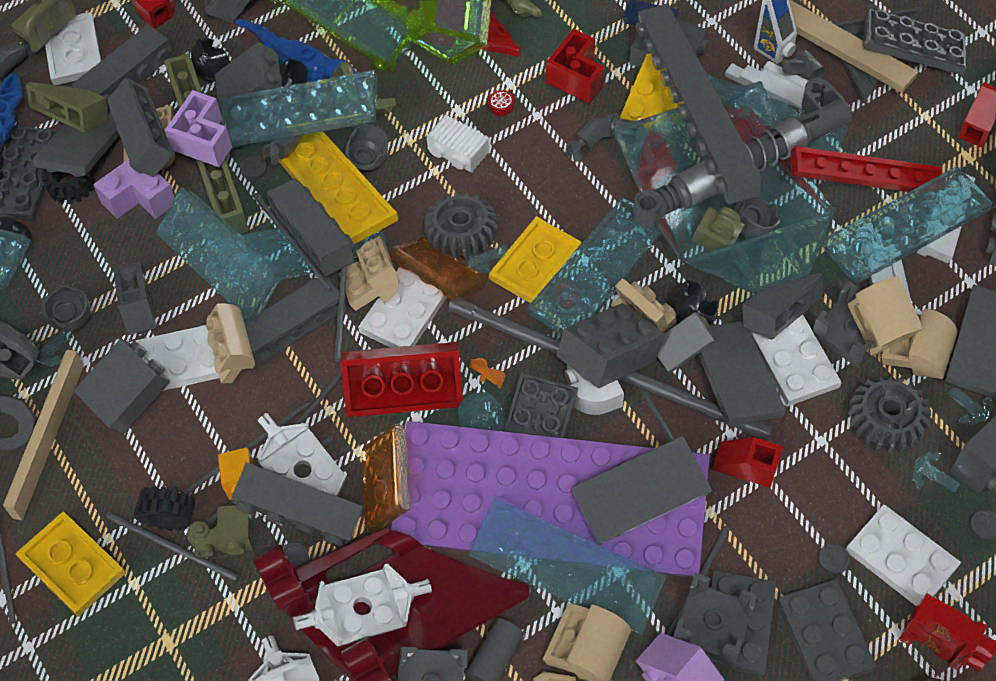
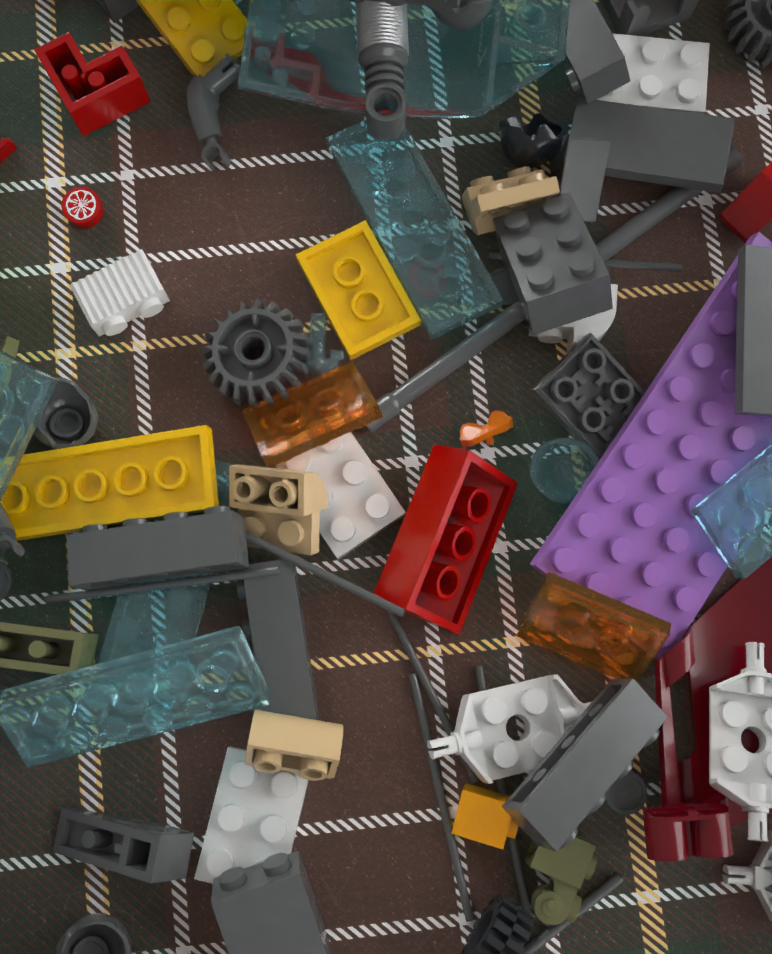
camera: 65 degrees left, 20 degrees up
(718, 229) = (459, 49): olive brick -> none

